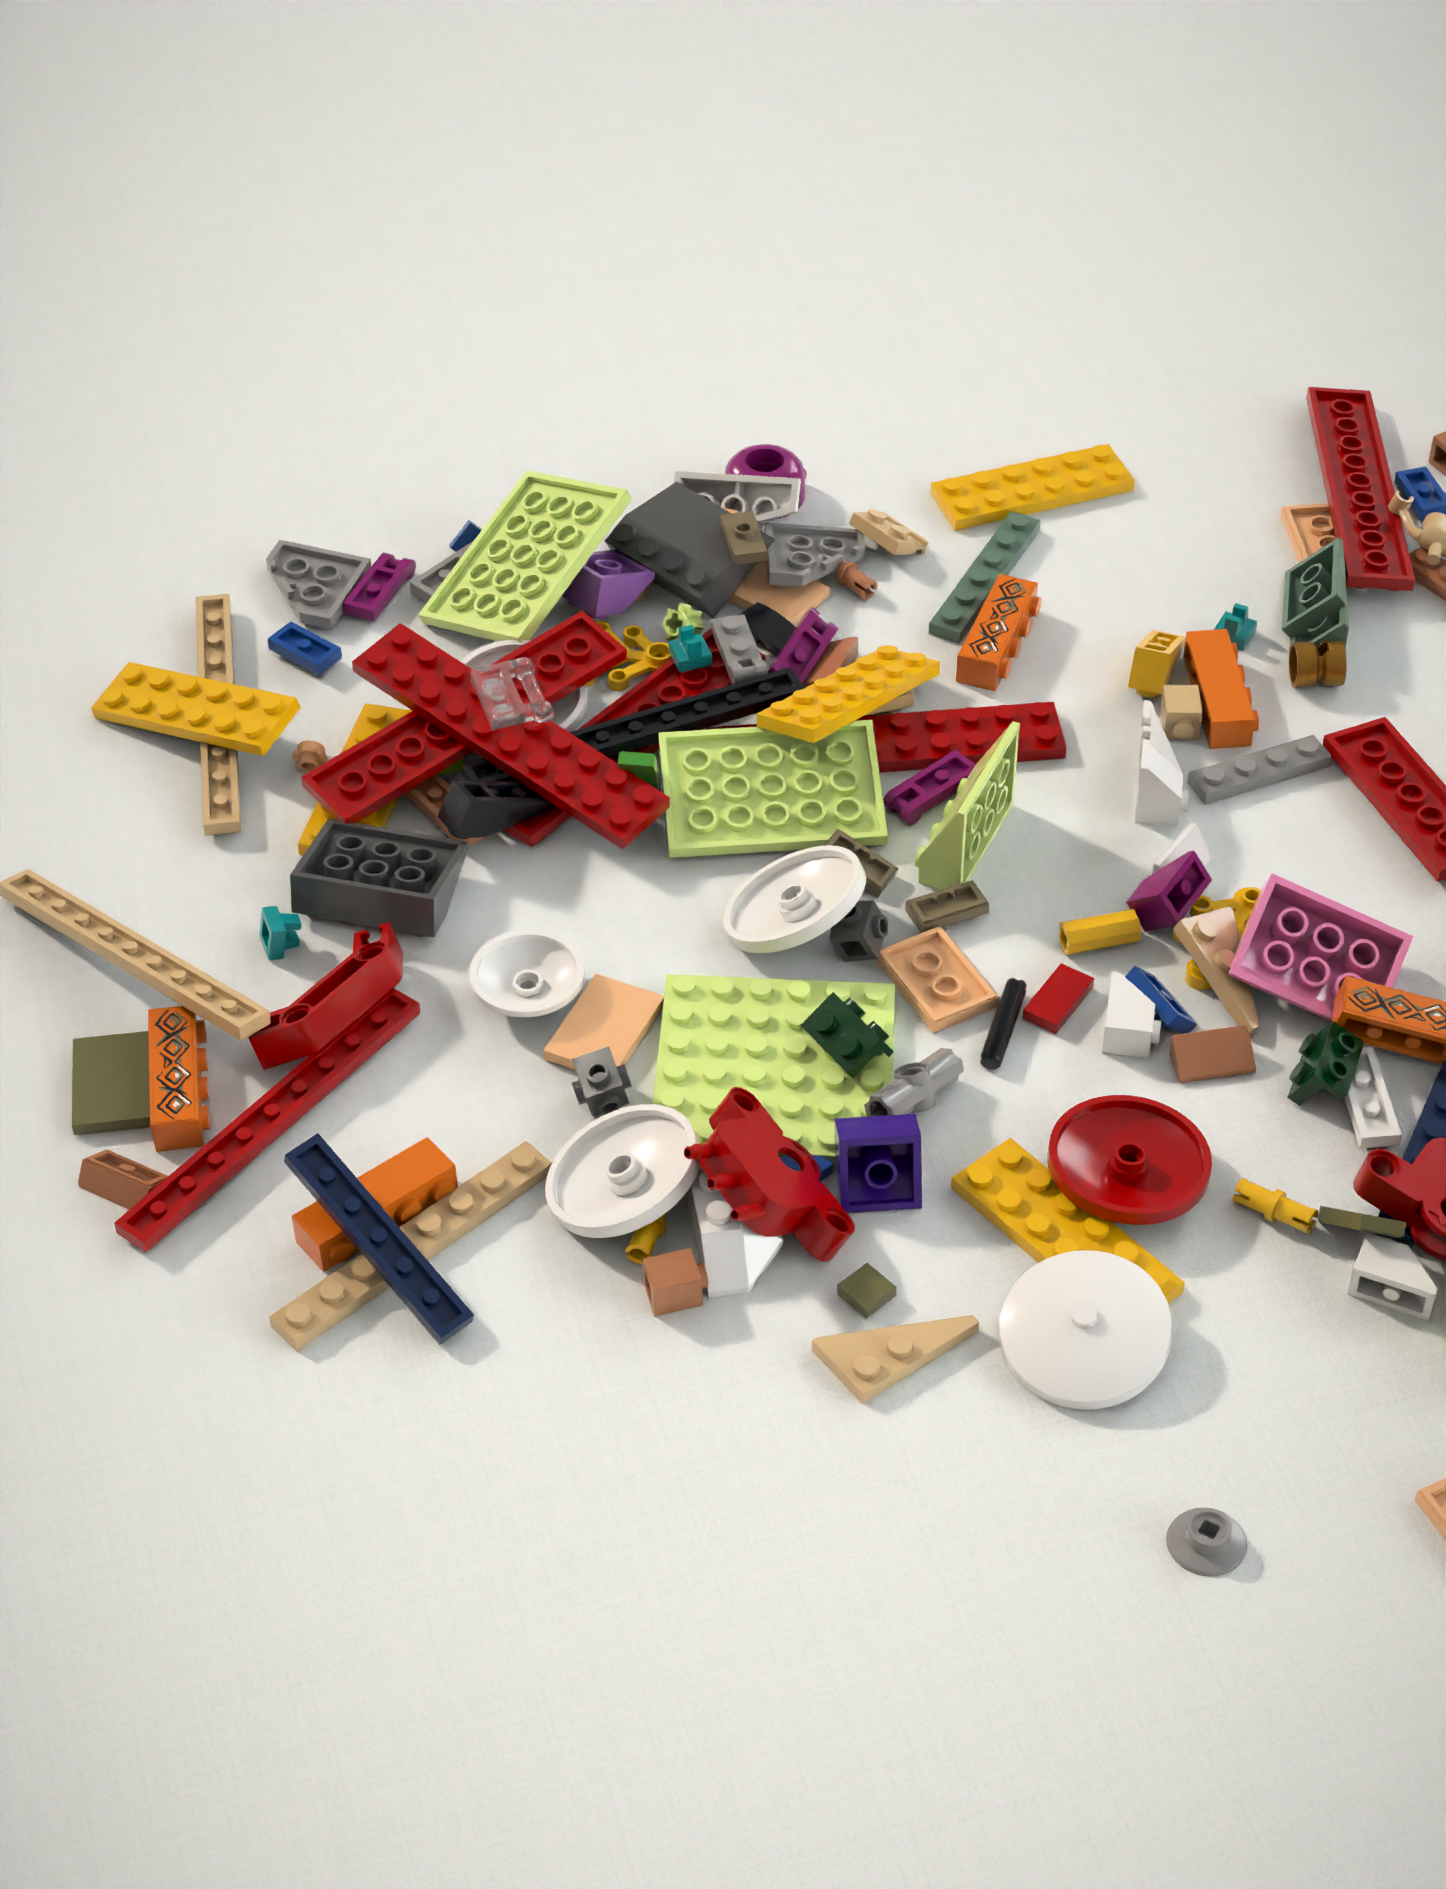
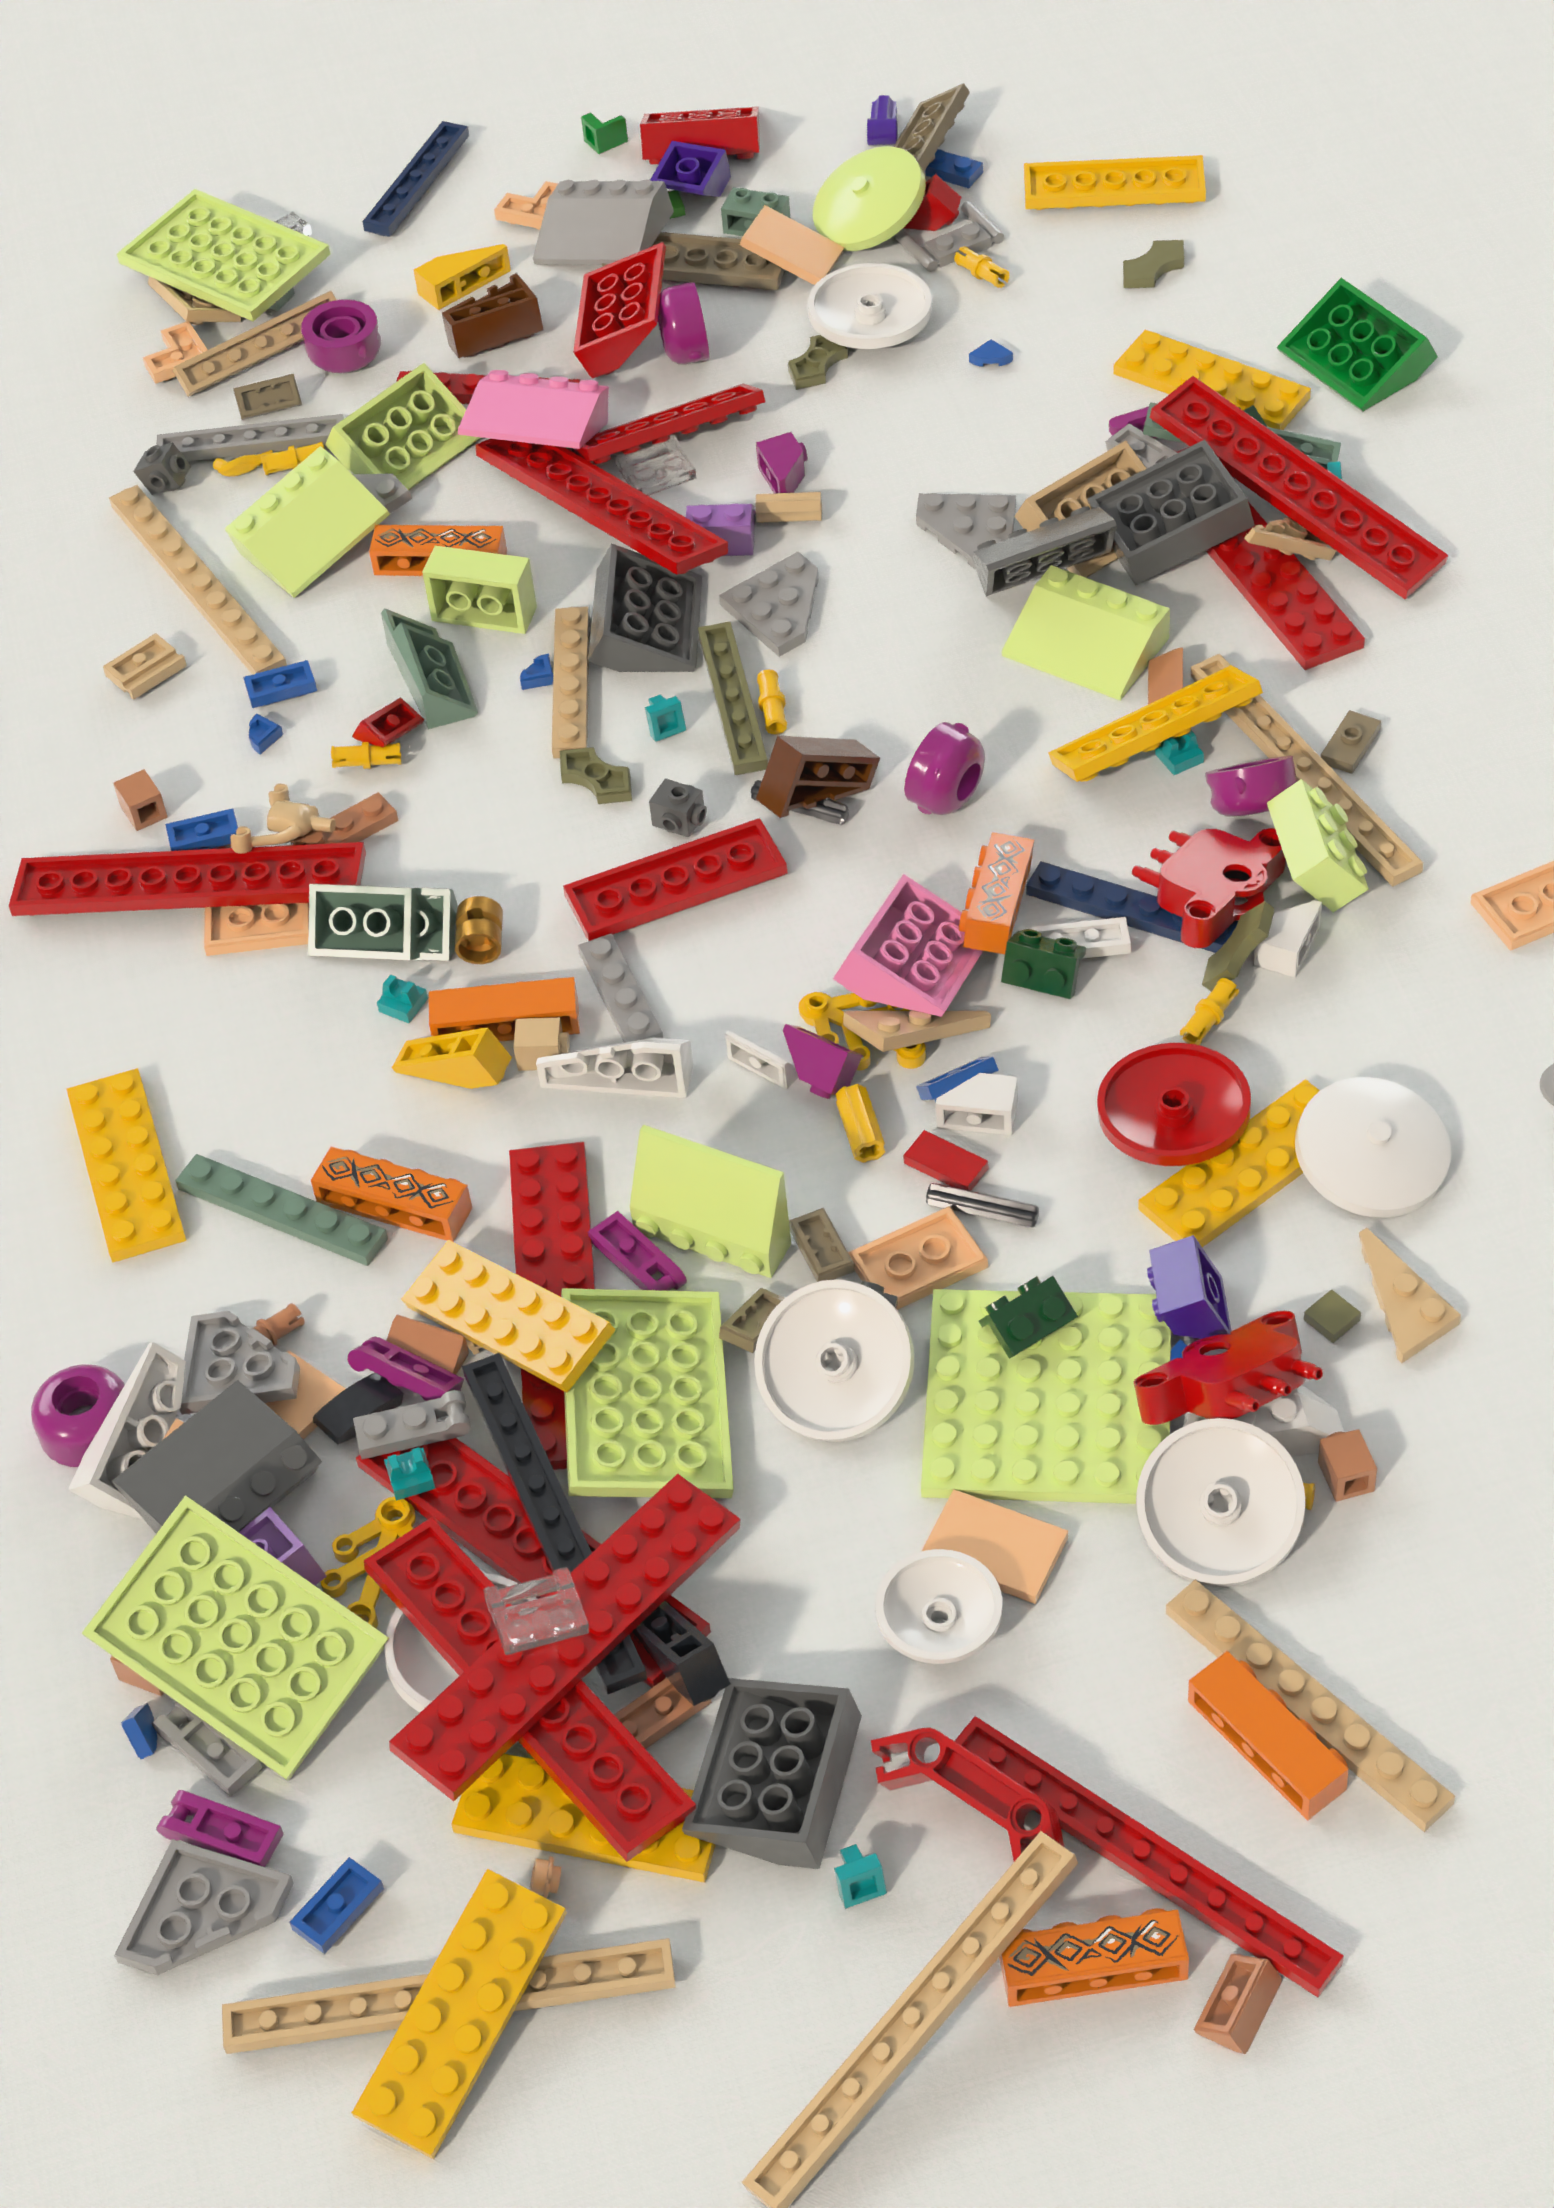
camera: 85 degrees left, 5 degrees up
(110, 1083) = (1092, 2034): olive tile -> none
(379, 1238) = (1337, 1710): dark blue plate -> none
(600, 1082) = (1092, 1532): dark grey brick -> none
(642, 765) = (623, 1506): bright green tile -> none
(679, 618) = (360, 1487): yellowish green gear -> none
(743, 538) = (244, 1402): dark tan plate -> none
(888, 532) = (201, 1291): tan plate -> none
(916, 1085) = (1106, 1272): light grey piece -> none
(1212, 1054) = (1023, 1047): nougat slope -> none

